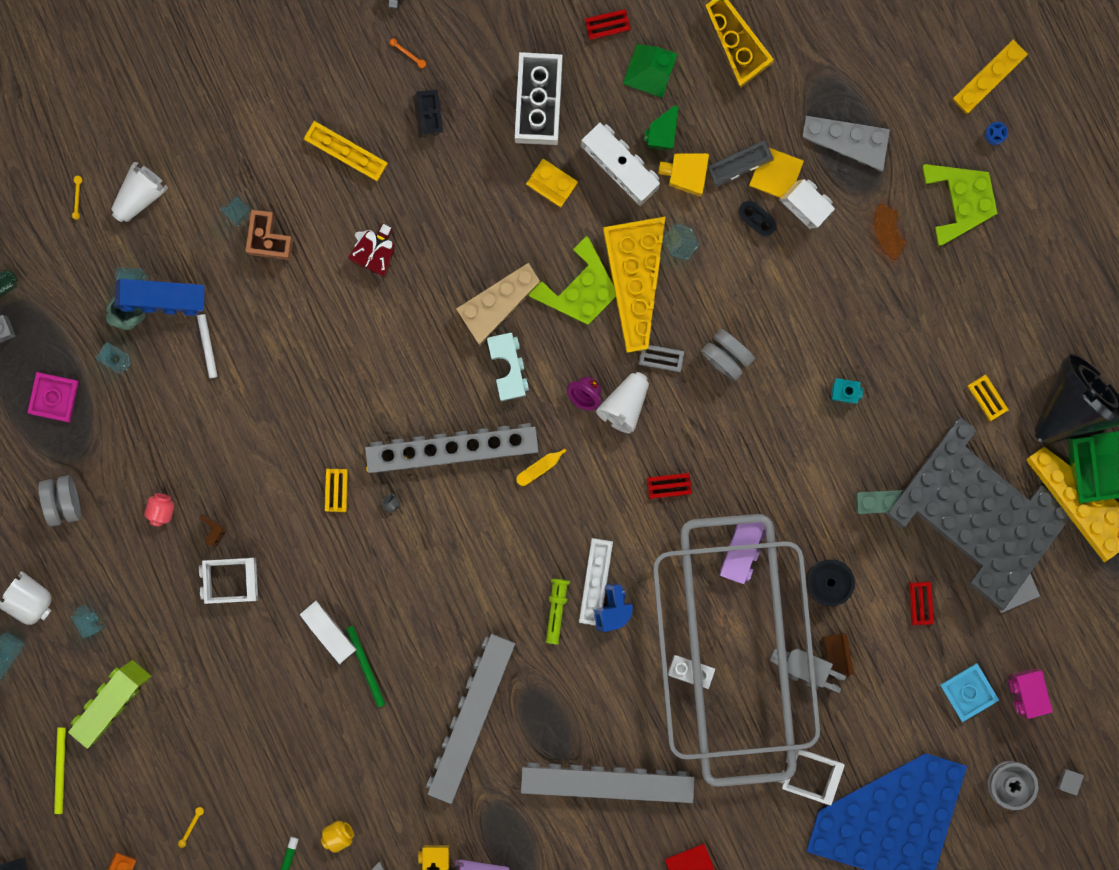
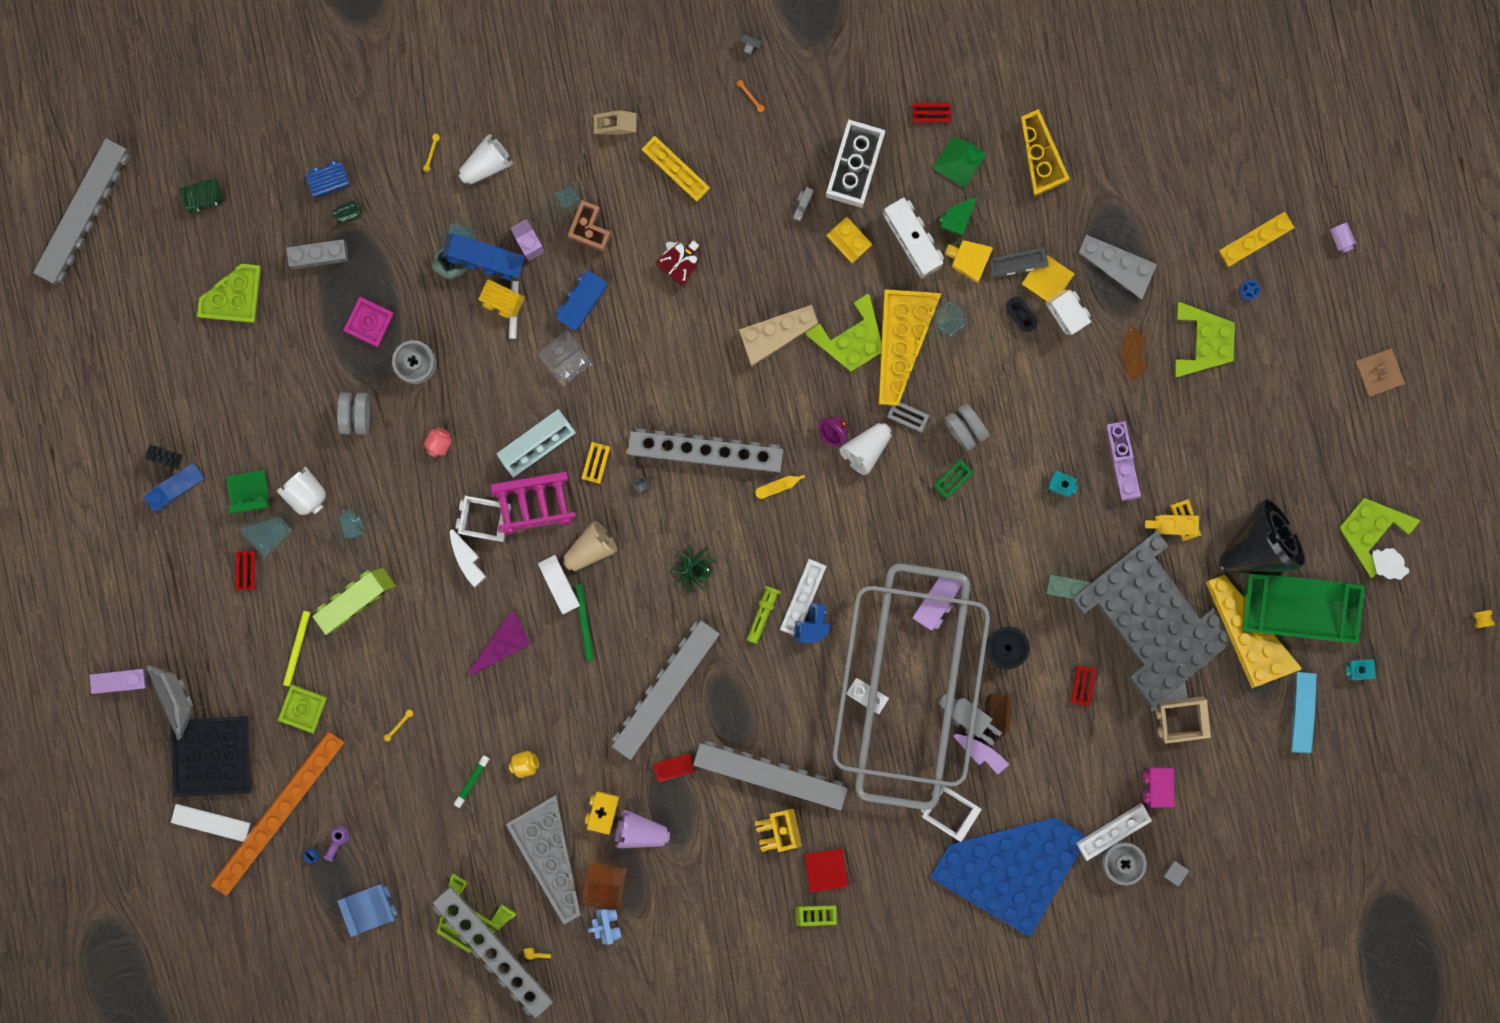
camera: 20 degrees right, 0 degrees up
(82, 834) = (302, 709): none -> lime tile
(101, 423) = (411, 351): none -> light grey wheel
(106, 358) = (425, 295): clear light blue brick -> none
(190, 337) = (501, 298): none -> yellow brick
(203, 267) = (527, 240): none -> lavender slope
(216, 533) = (483, 475): reddish brown panel -> none
(221, 629) = (466, 559): none -> white slope
(260, 538) = (521, 487): none -> dark pink fence
(265, 485) = (535, 443): none -> light aqua brick
(268, 117) = (615, 122): none -> tan slope
(274, 385) = (564, 358): none -> clear slope
(278, 318) = (581, 301): none -> blue brick
(285, 708) = (505, 642): none -> magenta wing
(351, 584) = (589, 547): none -> tan cone
(428, 113) = (755, 153): black hinge -> none
(470, 579) = (693, 569): none -> dark green animal
(492, 151) = (804, 199): none -> light grey plate
(500, 800) = (674, 767): none -> red tile
(505, 348) = (772, 408): light aqua arch -> none
(638, 841) = (785, 831): none -> yellow brick
(672, 485) = (904, 530): red tile -> none
(717, 429) = (942, 490): none -> green tile
(829, 703) = (982, 753): none -> lavender slope
(905, 350) = (1123, 461): none -> lavender slope
(969, 692) = (1106, 773): medium azure plate -> none
(978, 405) = (1175, 524): none -> yellow hinge
(993, 754) = (1113, 832): none -> white plate
(1063, 623) = (1203, 718): none -> tan window
(1083, 52) = (1343, 237): none -> lavender brick

